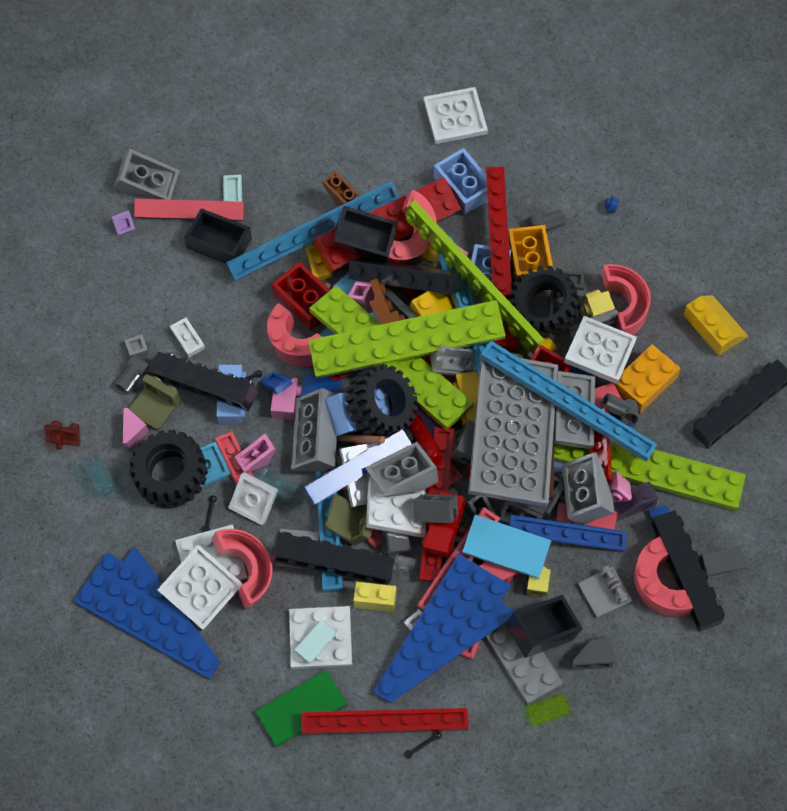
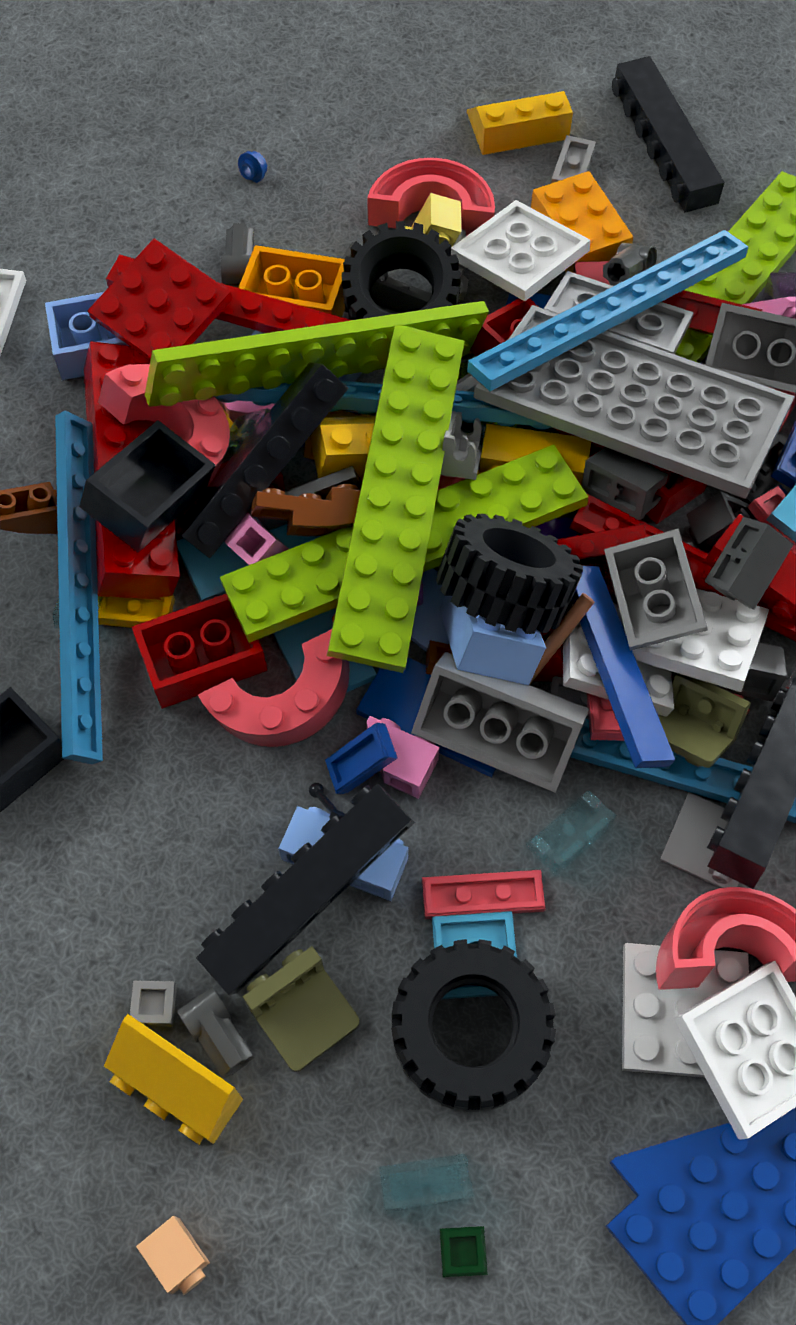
camera: 70 degrees left, 0 degrees up
(40, 394) = (174, 1256): none -> light nougat brick
(62, 435) = (298, 1238): clear red hips -> none
(78, 502) = (463, 1251): none -> dark green tile
(106, 365) = (171, 1081): none -> yellow slope
(133, 429) = (342, 1073): bright pink slope -> none
(187, 337) = (179, 894): white plate -> none
(213, 499) = (612, 999): black hinge -> none
(253, 498) = (592, 882): white plate -> none
(256, 455) = (498, 844): bright pink slope -> none
(477, 197) = (159, 301): none -> red plate
(695, 362) = (573, 158): none -> light grey plate

